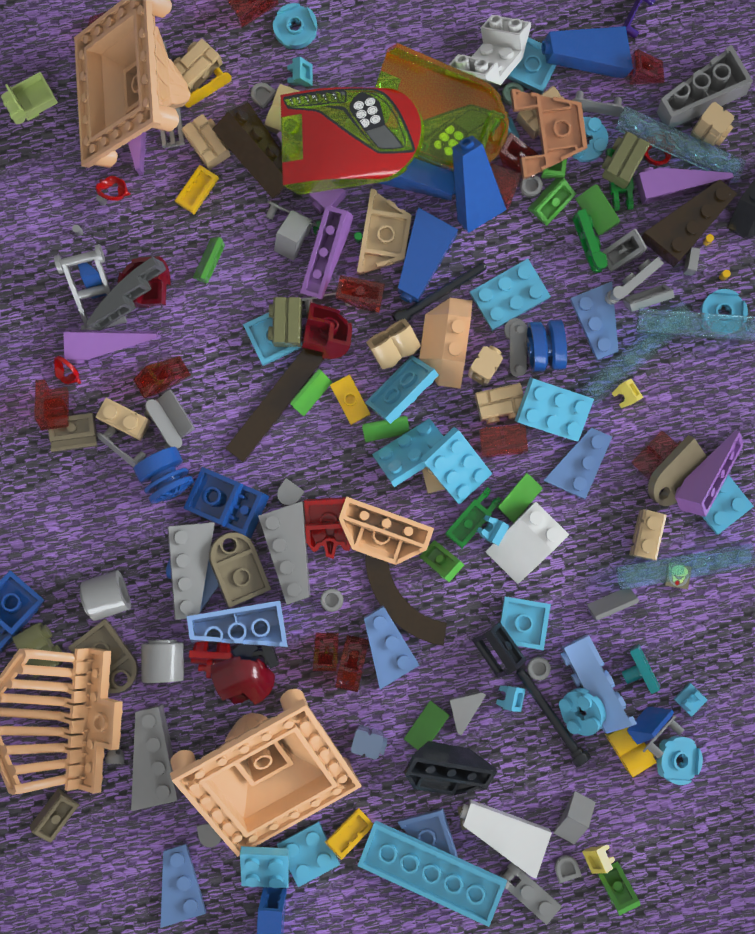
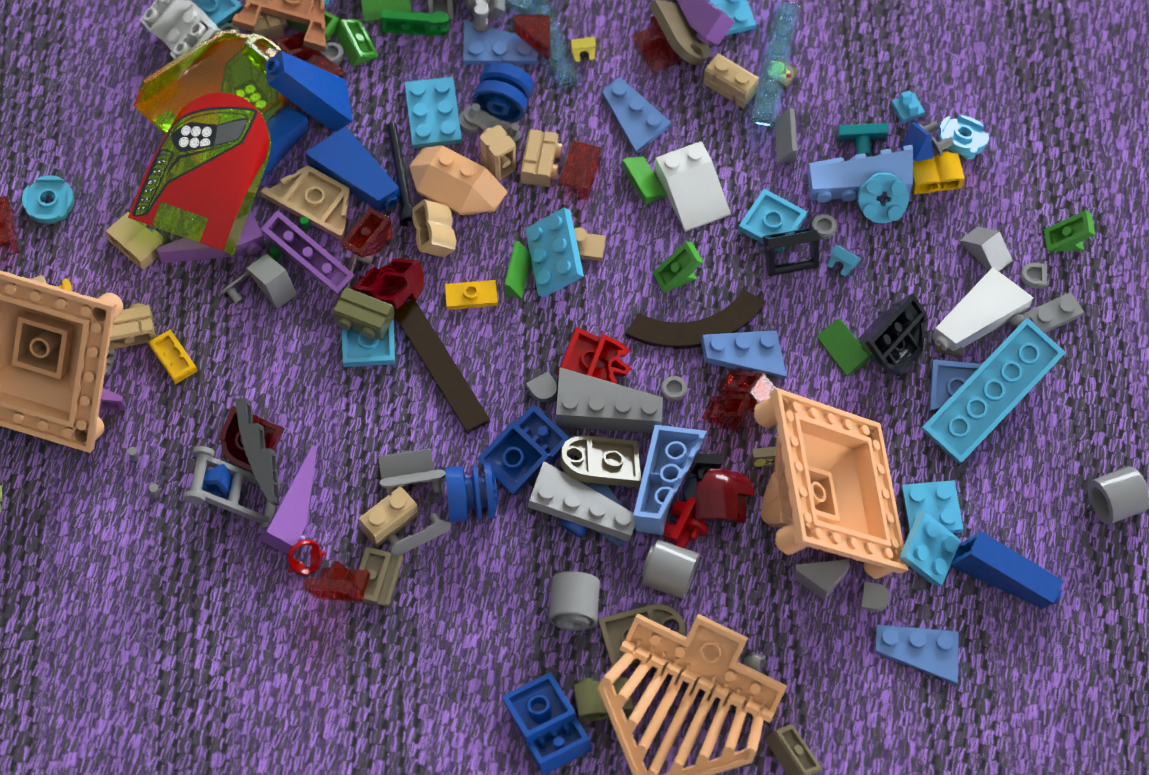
camera: 75 degrees left, 20 degrees down
(108, 182) = (129, 431): red piece -> none
(151, 760) = (773, 620): light grey wedge -> none
(161, 376) = (359, 465): clear red slope -> none
(209, 260) = (255, 372): bright green slope -> none
(253, 147) = (166, 276): dark brown wedge -> none
(262, 94) = (103, 258): light grey tile -> none
(302, 72) = (104, 211): medium azure tile -> none
(310, 392) = (445, 327): bright green slope -> none
(349, 833) = (925, 458): yellow plate -> none
(368, 742) = (839, 392): sand blue brick -> none
(382, 532) = (626, 304): light nougat wedge -> none
(402, 389) = (484, 236): medium azure plate -> none
(456, 465) = (587, 214): medium azure plate -> none
(464, 708) = (840, 304): light grey slope -> none
(471, 519) = (647, 228): green hinge -> none
(494, 530) = (667, 210): medium azure tile -> none
(554, 409) = (569, 111): medium azure plate -> none
(578, 754) = (925, 221): black piece -> none
(597, 859) = (1035, 242): light yellow tile -> none
(620, 348) = (535, 31): none -> clear red slope

